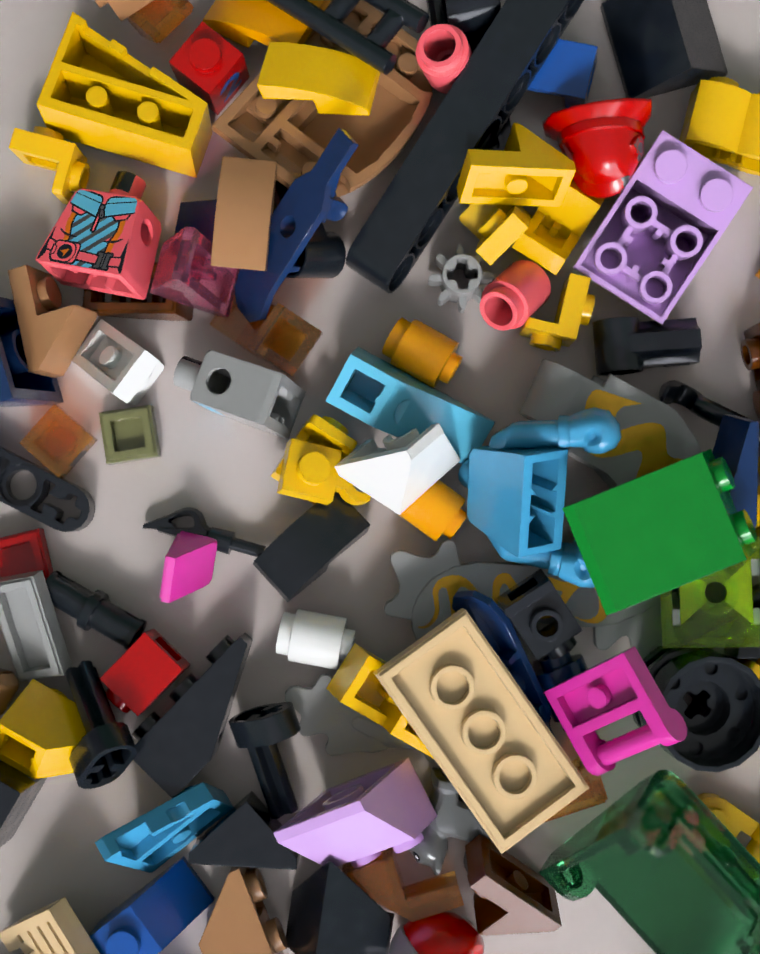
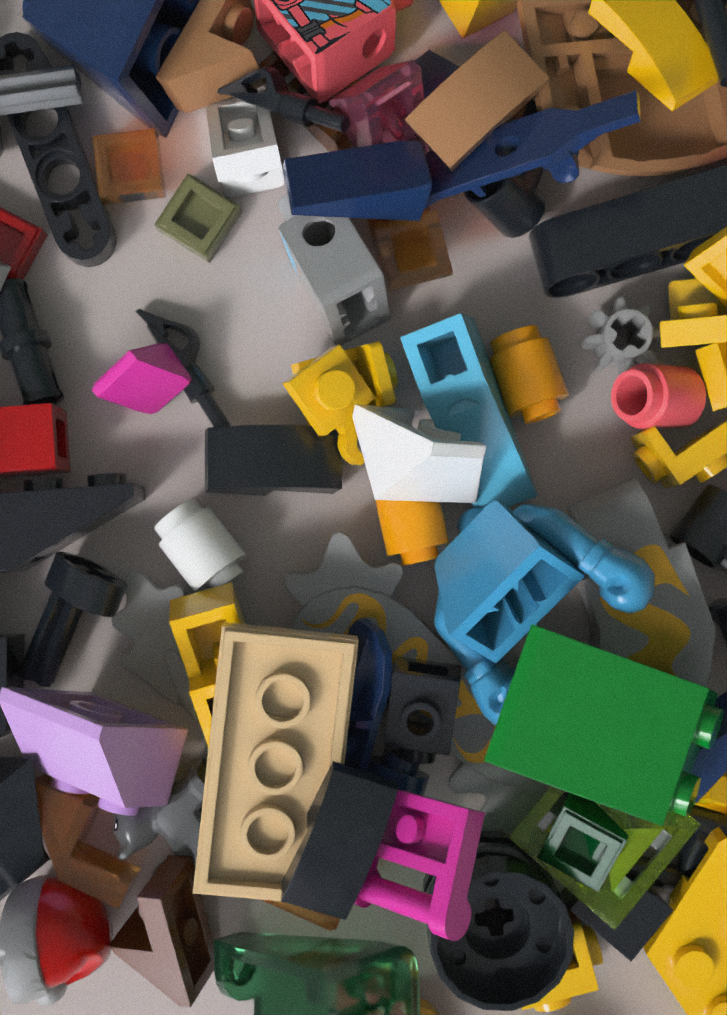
camera: 40 degrees right, 0 degrees up
(116, 318) = (276, 98): none -> black hand
(217, 327) = (361, 182): none -> dark blue slope
(564, 741) = (339, 841): none -> black slope
(709, 610) = (583, 842): none -> dark green slope

